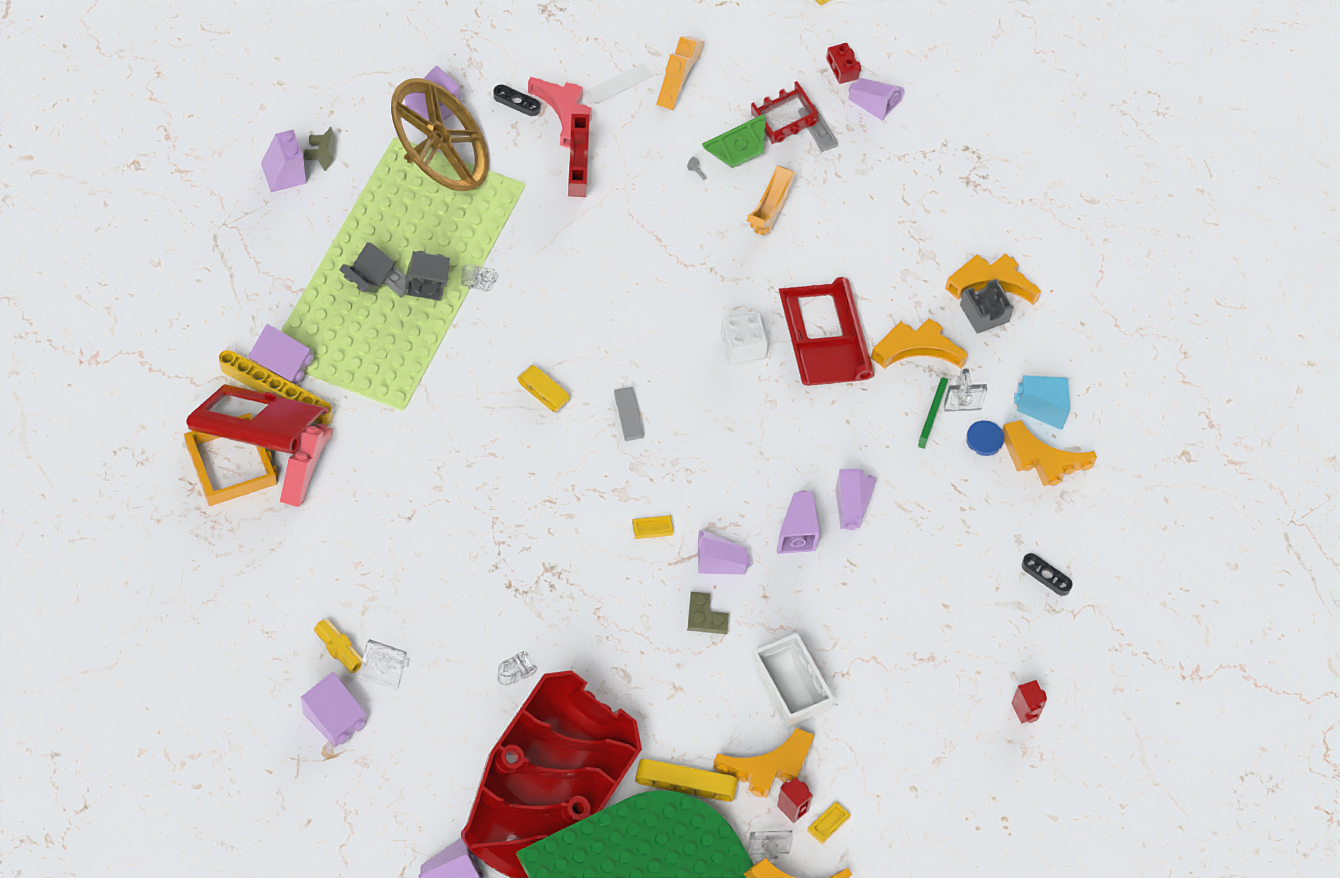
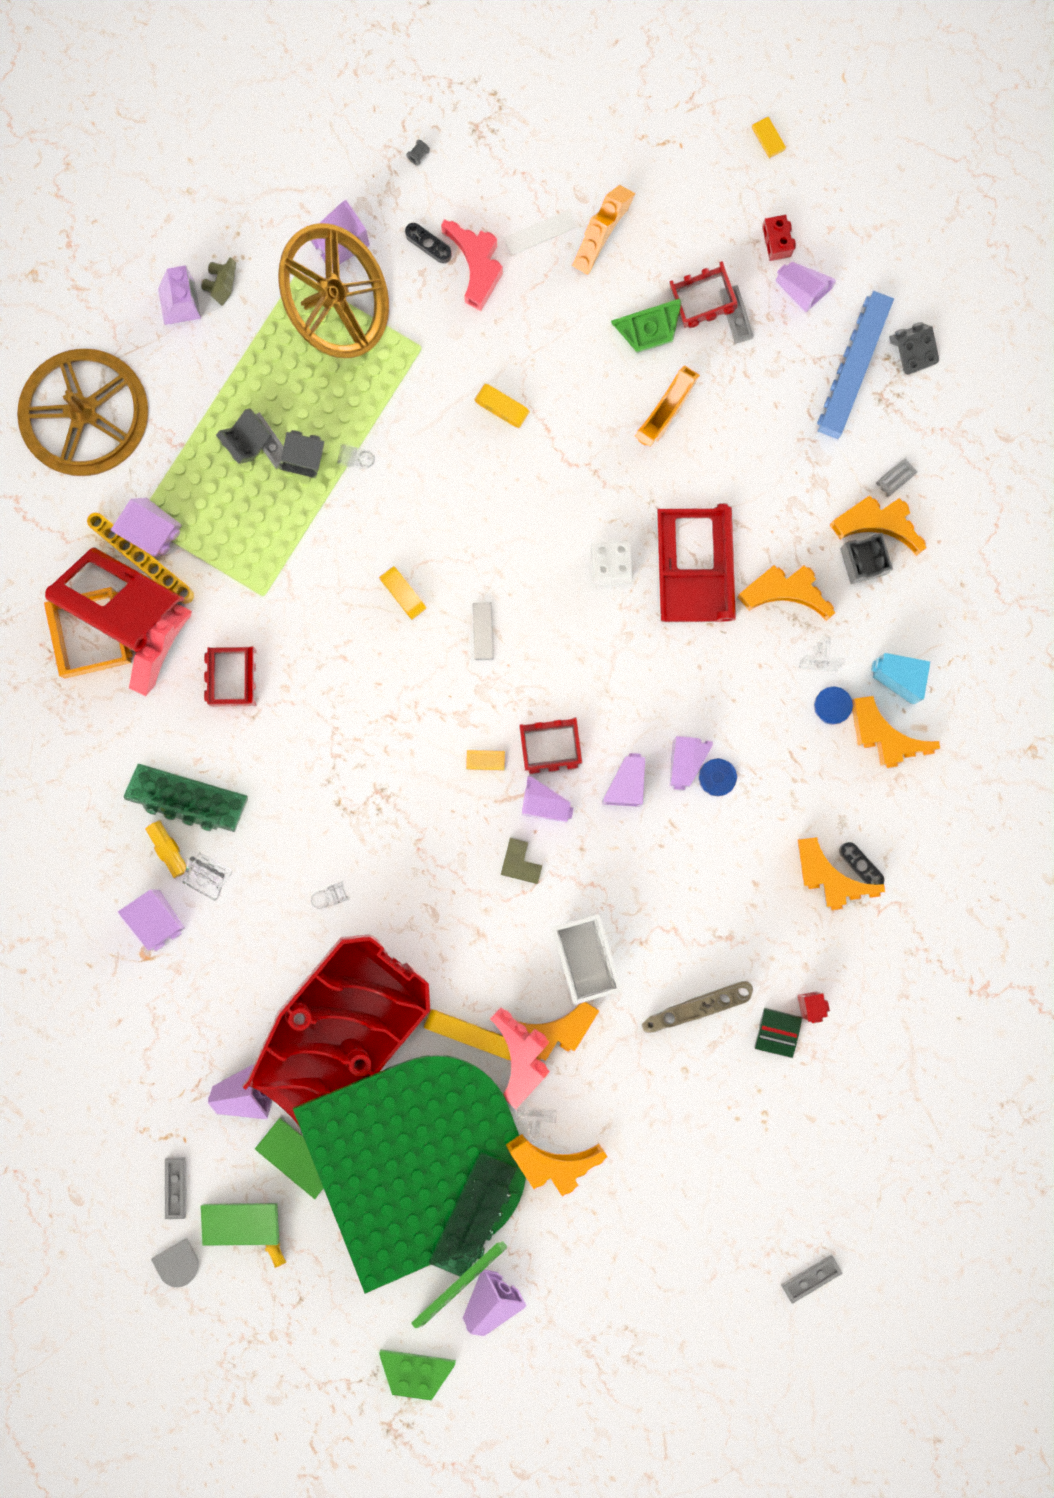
camera: 15 degrees right, 25 degrees up
(198, 271) = (83, 412): none -> pearl gold wheel
(352, 596) = (185, 799): none -> clear green plate
(382, 481) = (230, 676): none -> window
(493, 32) = (418, 152): none -> dark grey bush
(578, 155) = (474, 349): red arch -> none
(611, 222) = (501, 405): none -> yellow beam
(692, 166) = (596, 345): light grey hand -> none
(716, 504) = (550, 745): none -> clear window
(746, 775) = (524, 1048): none -> coral arch
(794, 799) = (568, 1074): red brick -> none
(828, 822) = (598, 1094): yellow tile -> none
(887, 514) = (717, 777): none -> blue tile
(911, 719) = (694, 1009): none -> dark tan piece
(932, 412) = (784, 675): green tile -> none
(938, 155) = (855, 365): none -> medium blue brick
(990, 251) = (884, 487): none -> light grey tile
(991, 135) = (916, 347): none -> dark grey bracket
(1000, 737) = (778, 1032): none -> dark green slope
(1027, 591) = (837, 887): none -> light orange arch

